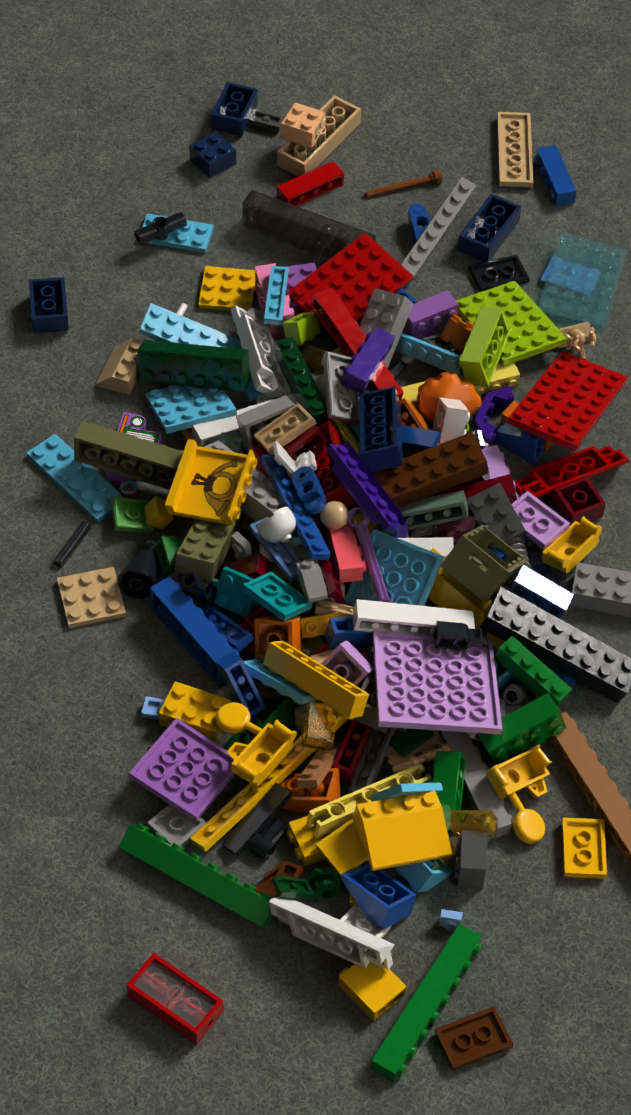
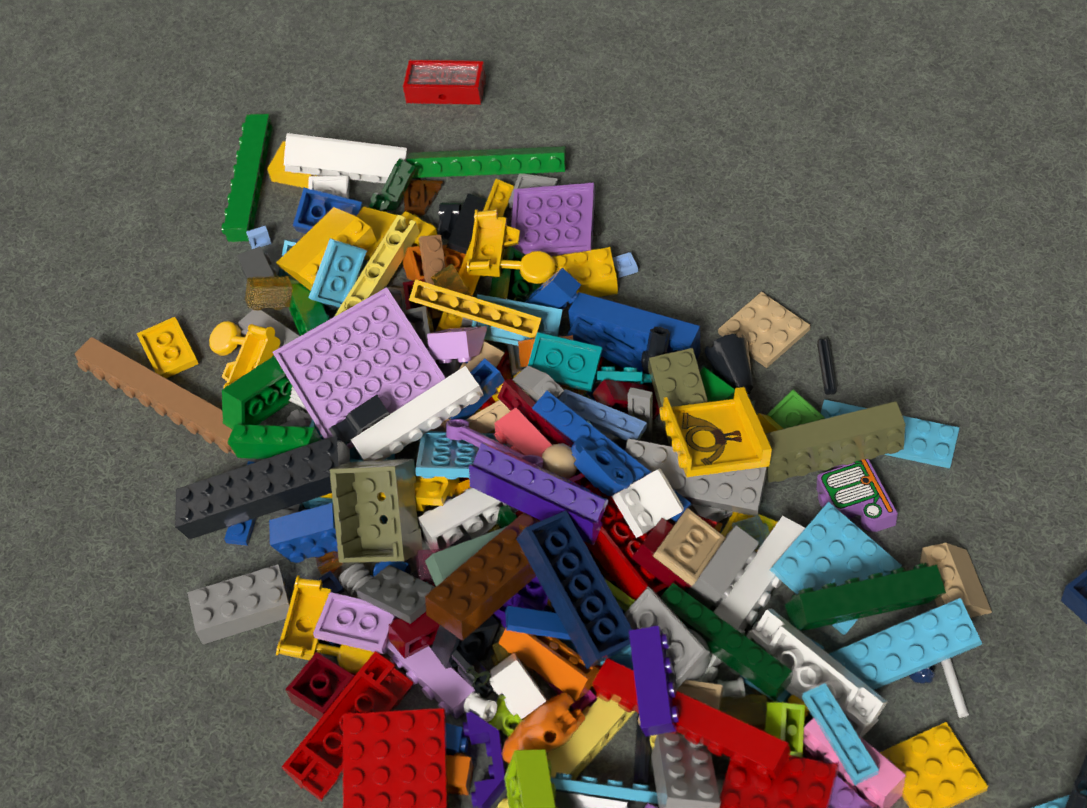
camera: 160 degrees right, 0 degrees up
(278, 527) = (610, 415): white cylinder -> none
(473, 1038) = (199, 174): reddish brown plate -> none

